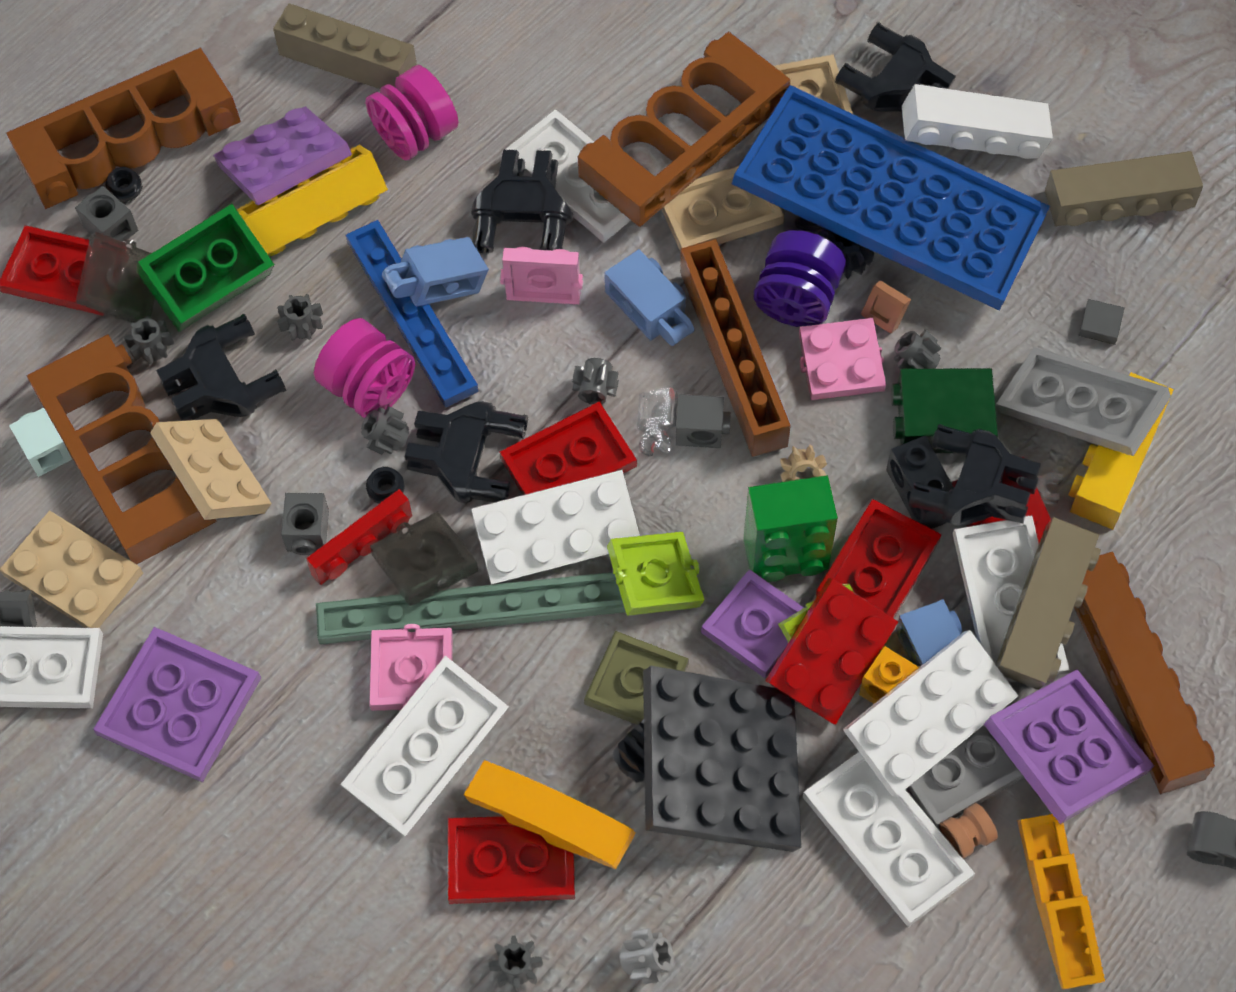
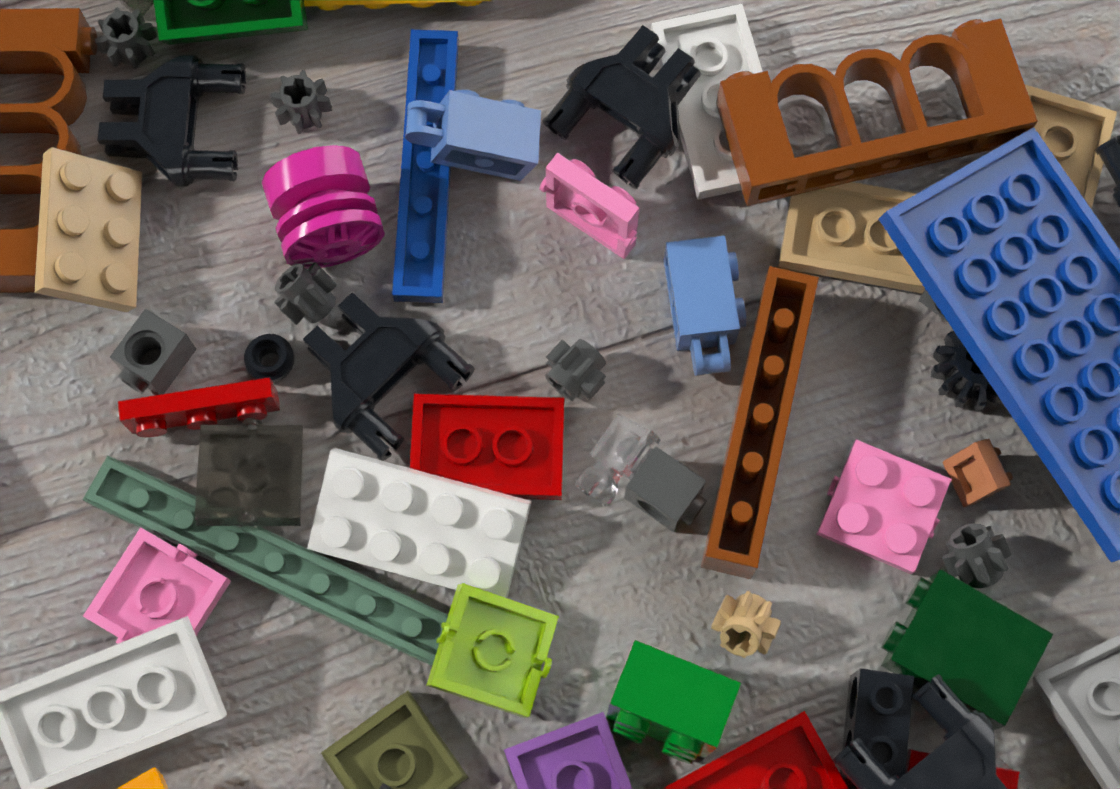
camera: 30 degrees right, 10 degrees up
(799, 278) = (891, 381): dark purple wheel -> none

